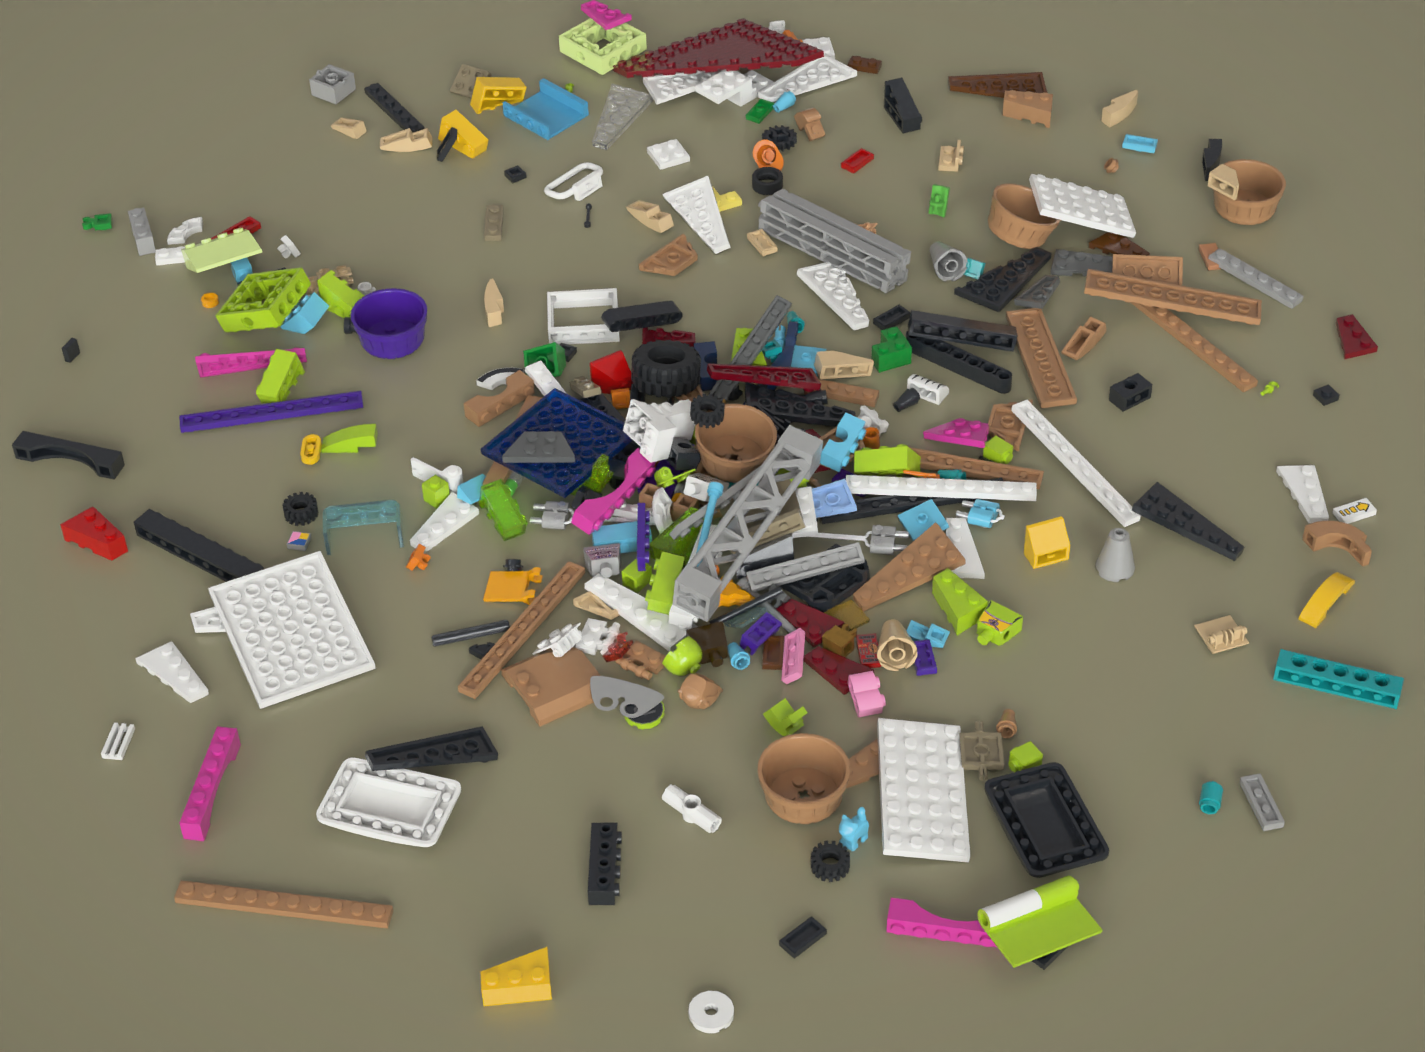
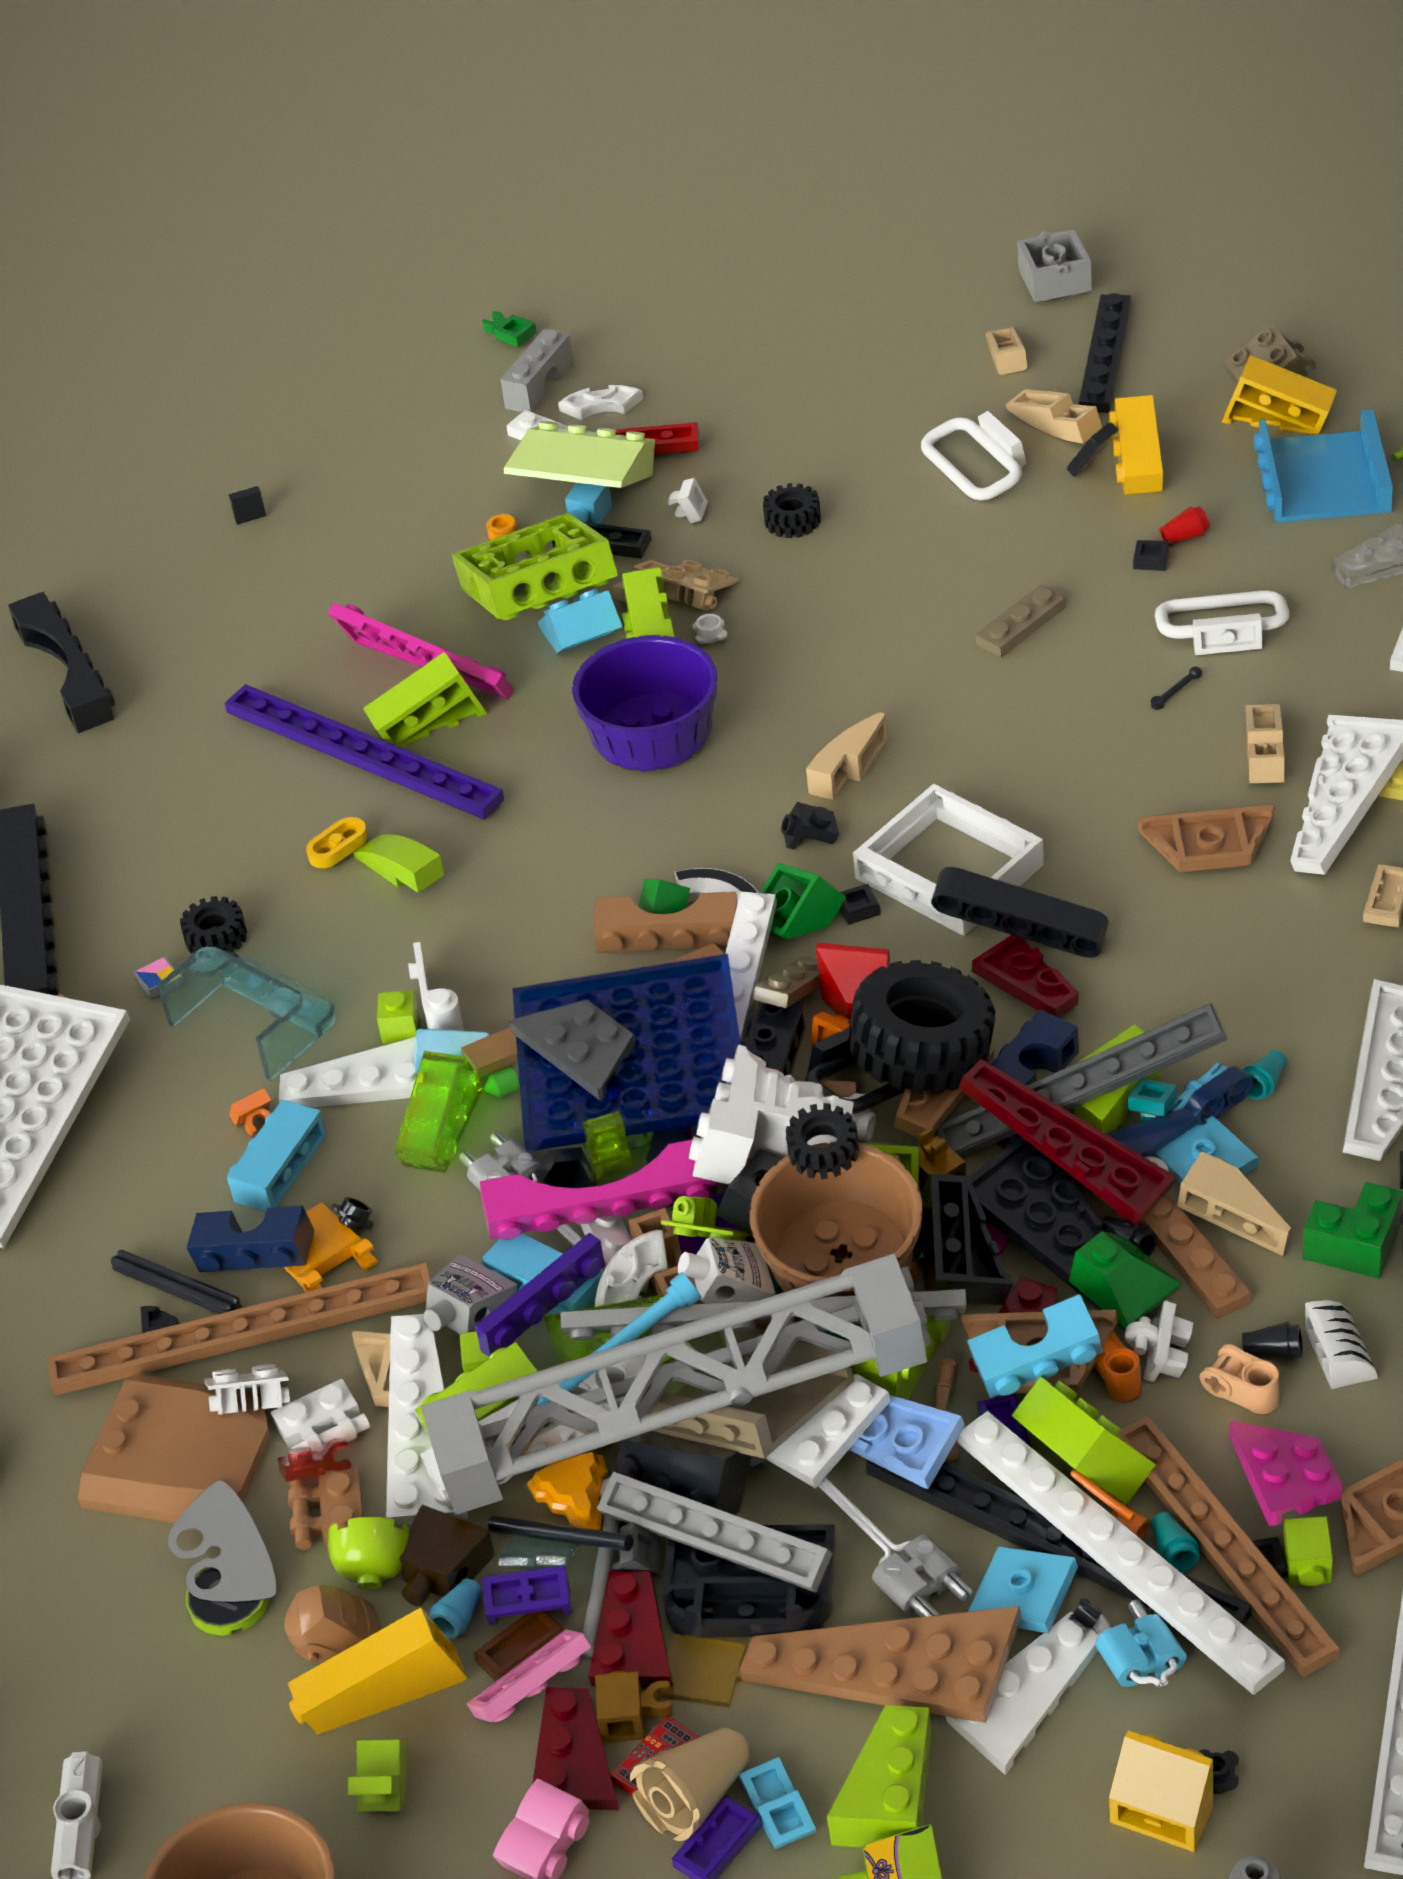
camera: 50 degrees right, 0 degrees up
(340, 229) = (791, 510): none -> black tyre
(393, 160) = (994, 438): none -> white bar
(451, 566) = (276, 1155): none -> medium azure brick
(475, 607) = (278, 1241): none -> dark blue arch
(487, 388) = (663, 897): none -> green panel
(508, 334) = (809, 822): none -> black bracket
(518, 155) = (1185, 526): none -> red cone
(742, 689) = (377, 1674): none -> yellow slope
(834, 406) = (1120, 1277): none -> green slope
(913, 416) = (1243, 1379): none -> light nougat piece
(954, 513) = (1085, 1615): none -> black hand

